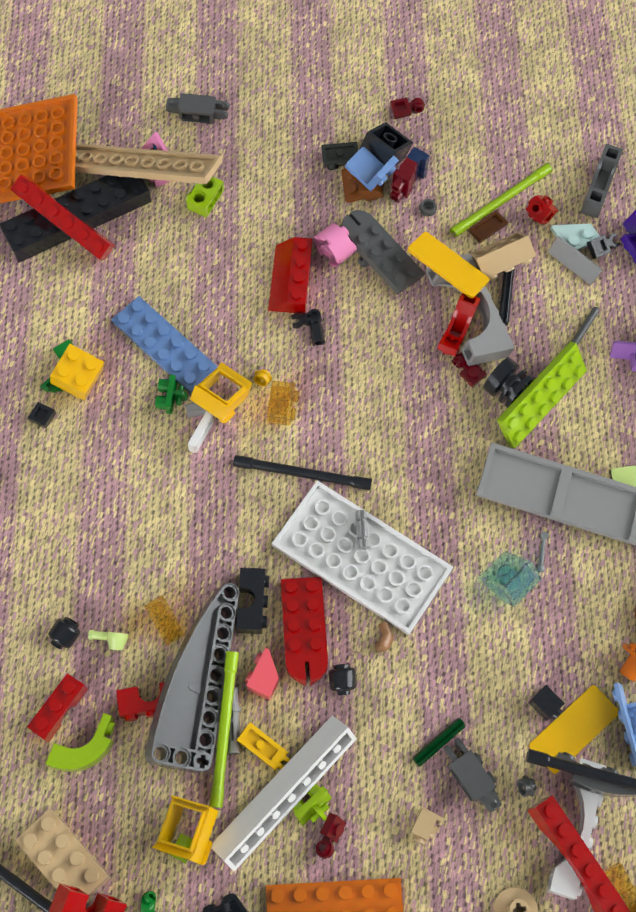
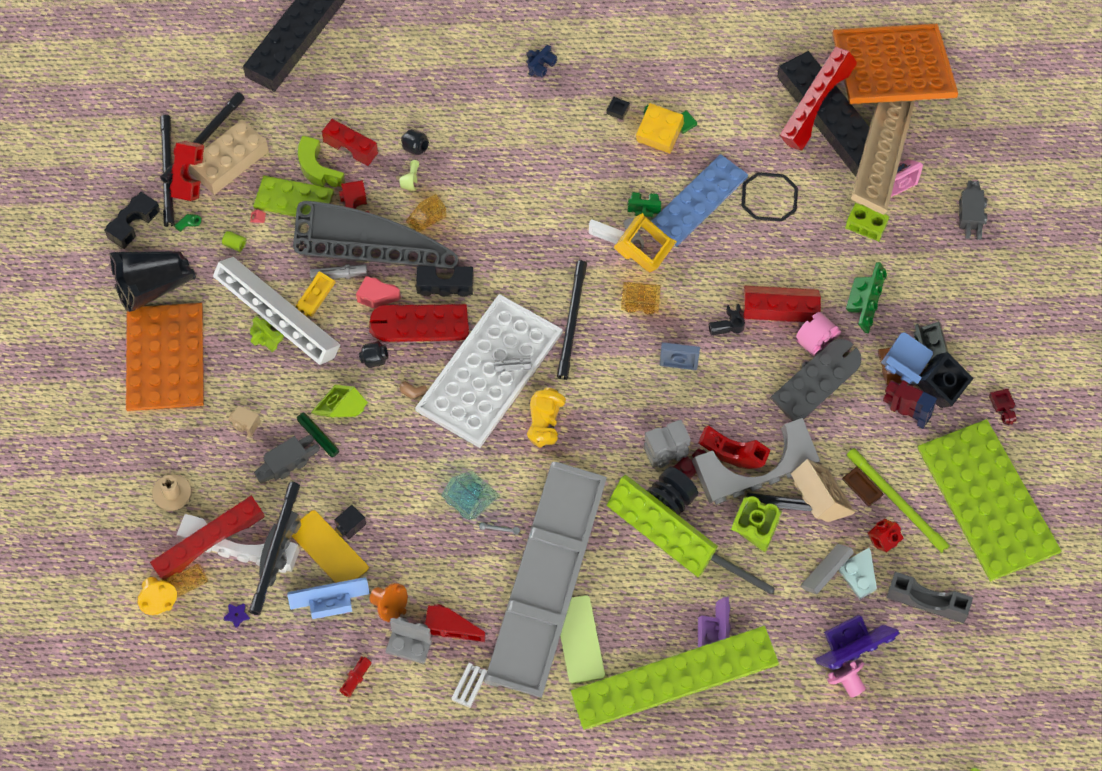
camera: 90 degrees right, 5 degrees down
(124, 779) = (284, 195): none -> lime plate
(148, 819) = (259, 216): none -> coral piece
(164, 303) = (772, 175): none -> black piece
(200, 844) = (234, 246): yellow piece -> none
(217, 788) = (280, 263): lime piece -> none
(262, 375) = (668, 282): yellow plate -> none
(287, 207) = (865, 296): none -> green bracket
(332, 830) = (243, 348): dark red plate -> none
(355, 367) = (679, 356): none -> sand blue plate
(405, 717) = (341, 402): none -> lime slope
(413, 501) = (544, 412): none -> yellow animal
(428, 203) = (878, 423): dark grey plate -> none
(448, 264) = (799, 434): yellow piece -> none
(455, 384) = (667, 444): none -> light grey brick
(497, 131) = (989, 500): none -> lime plate
(529, 784) = (275, 504): dark grey plate -> none
(535, 311) = (757, 522): none -> lime piece
(602, 245) = (847, 596): plate -> none

